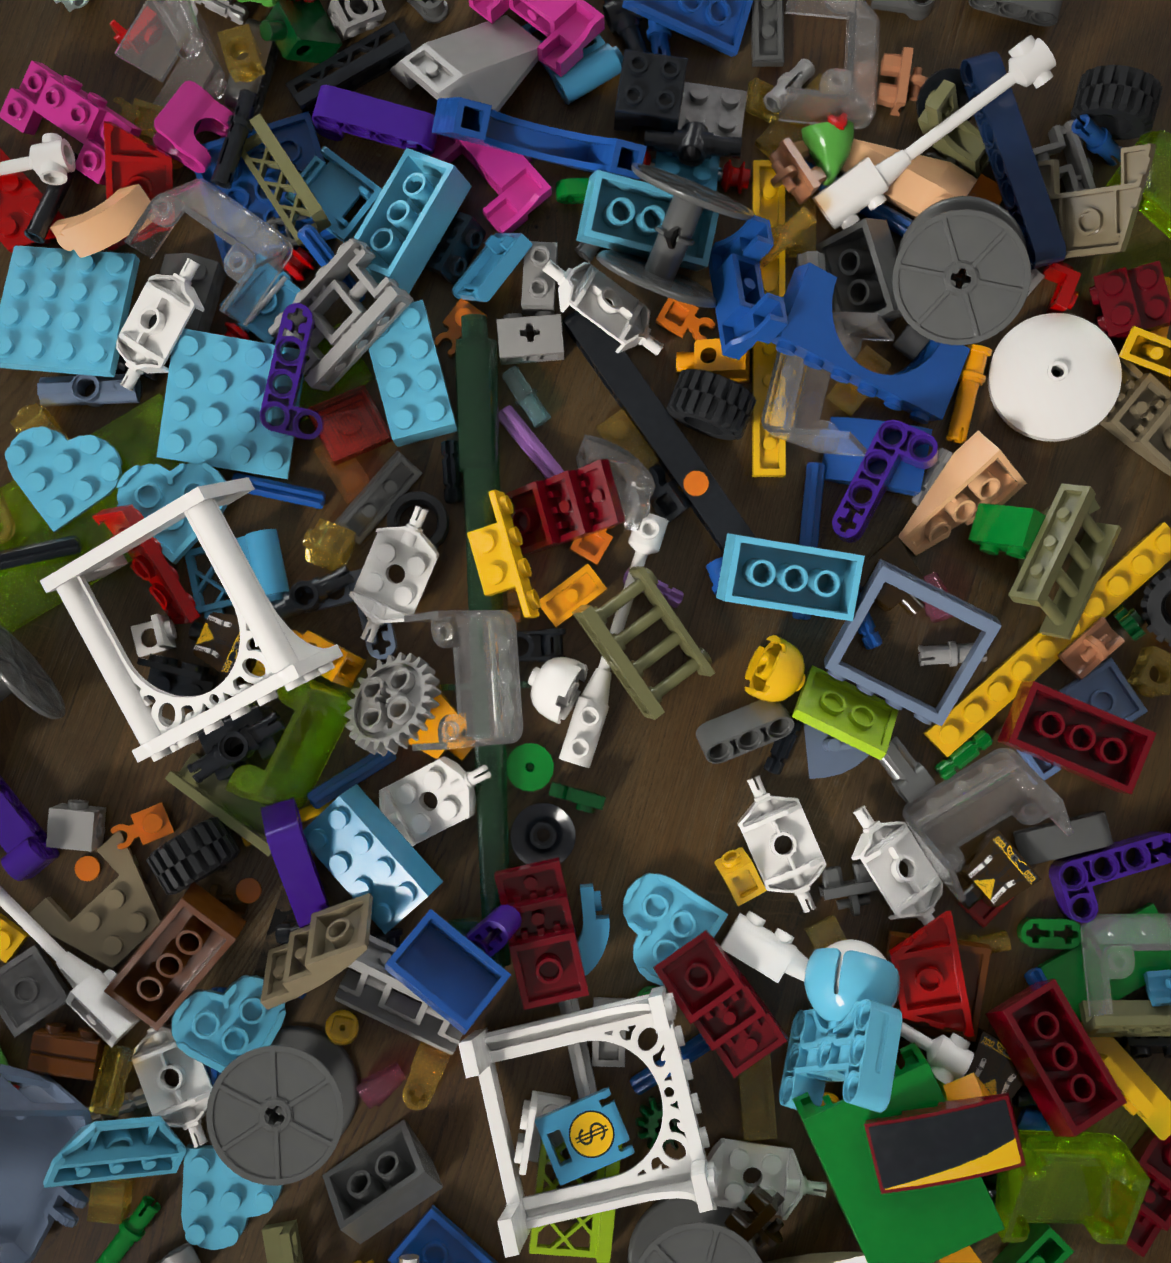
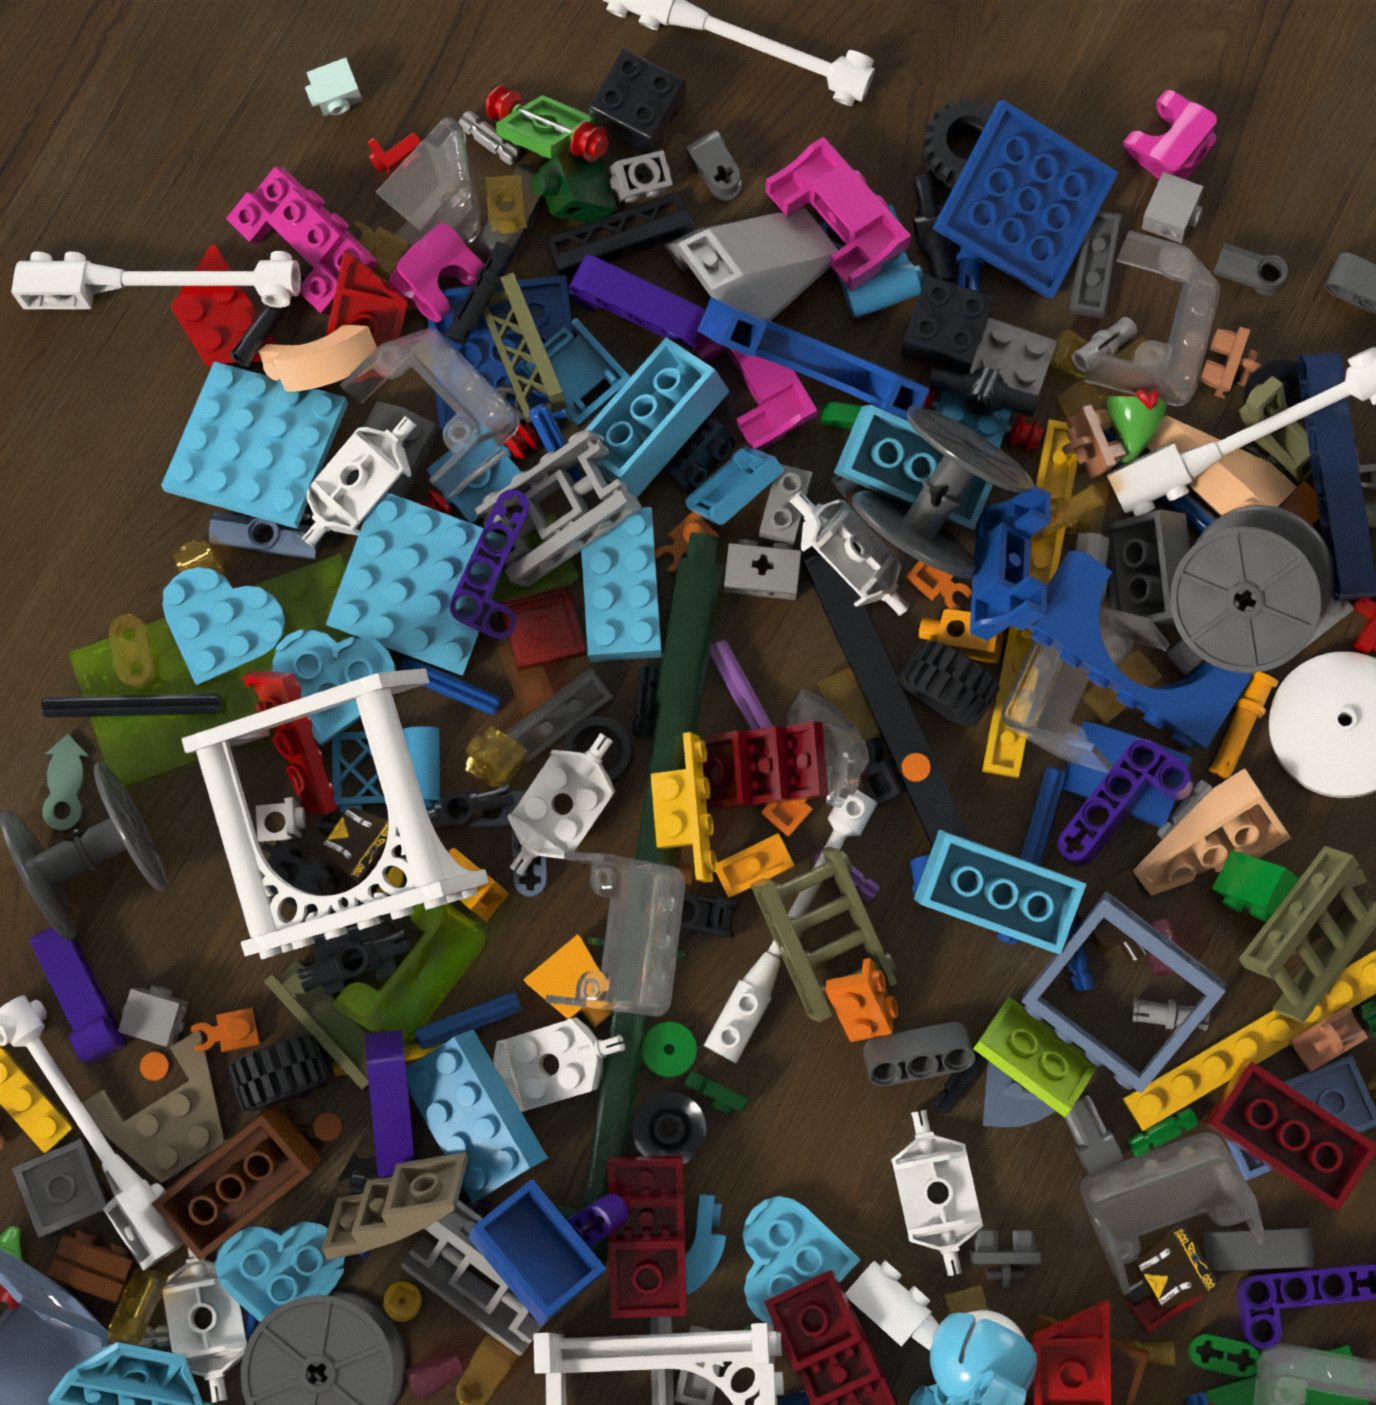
camera: 20 degrees right, 5 degrees down
(392, 704) = (531, 947): light grey gear -> none
(526, 396) = (745, 634): clear light blue axle -> none
(556, 687) = (717, 964): white cylinder -> none
(689, 695) = (863, 1003): none -> orange bracket
(740, 875) = (882, 1219): yellow bracket -> none
(775, 671) = (966, 995): yellow cylinder -> none
(881, 850) = (1045, 1223): white plate -> none

